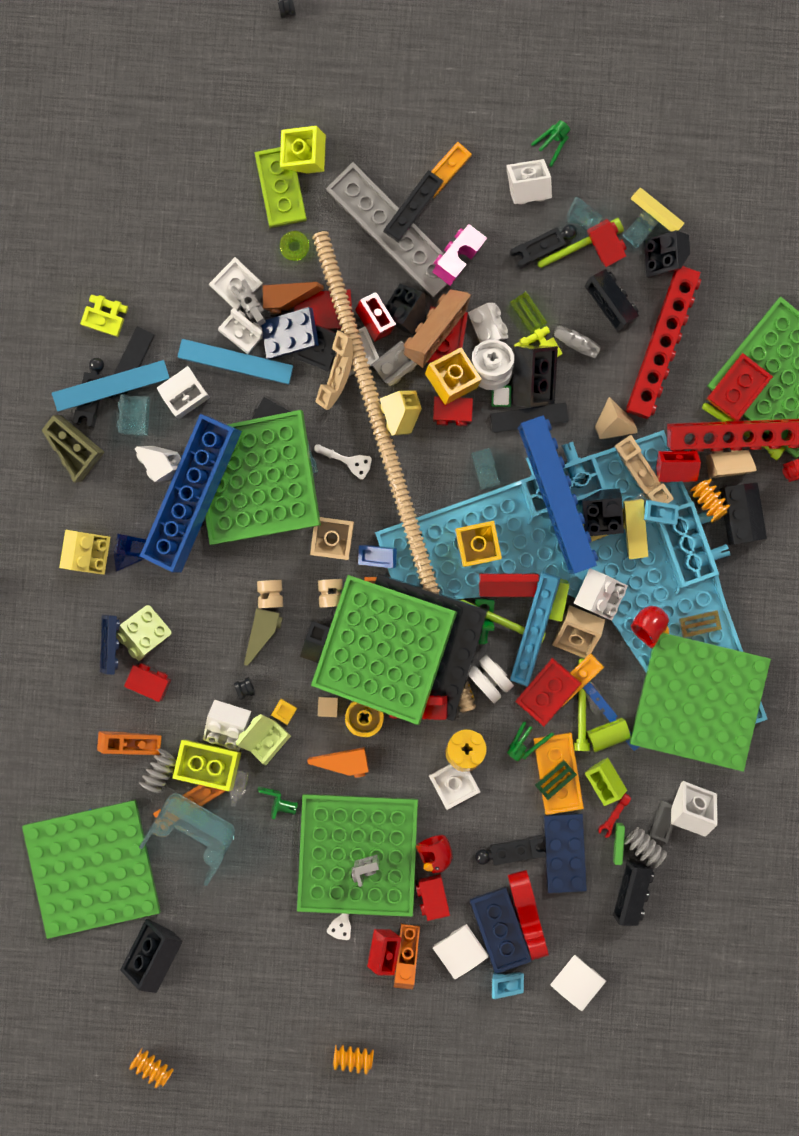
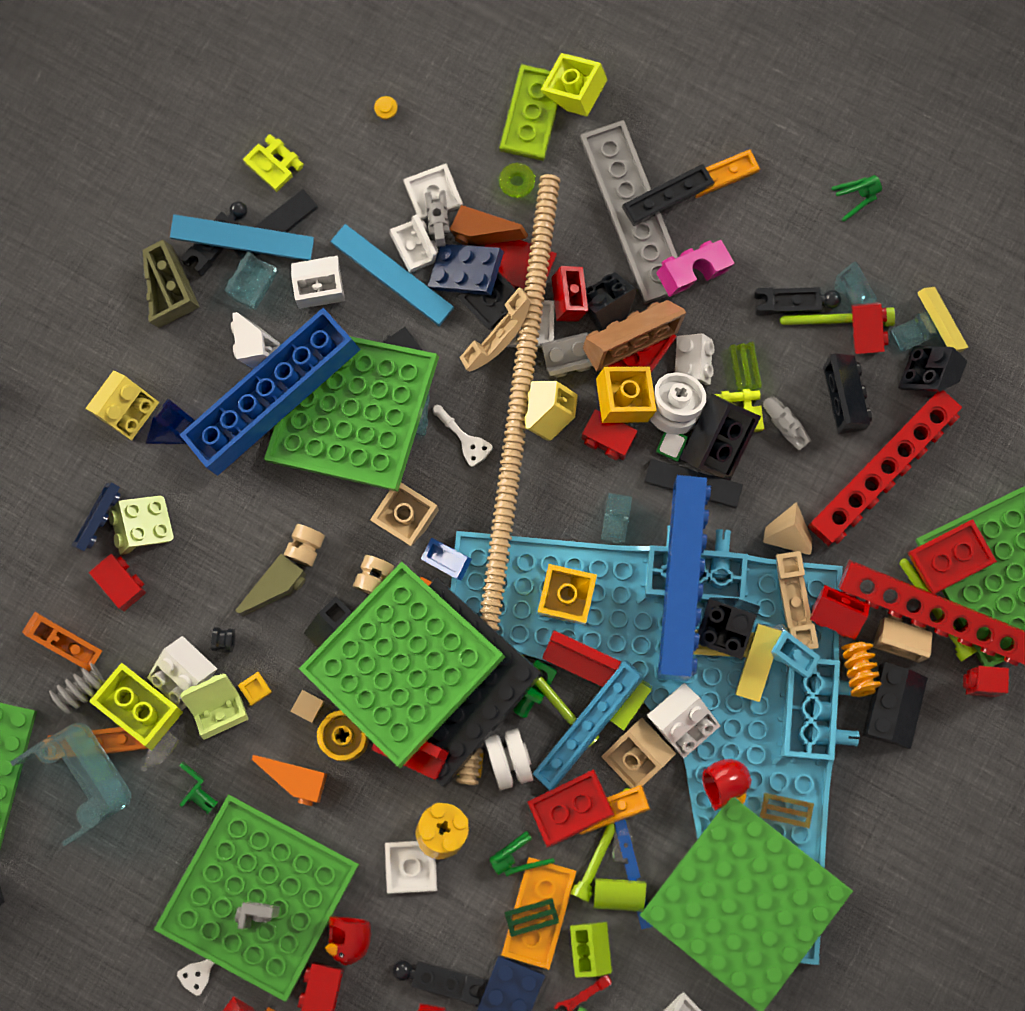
camera: 30 degrees right, 10 degrees down
(168, 233) = (385, 107): none -> yellow plate
(529, 181) = (810, 226): white slope -> none

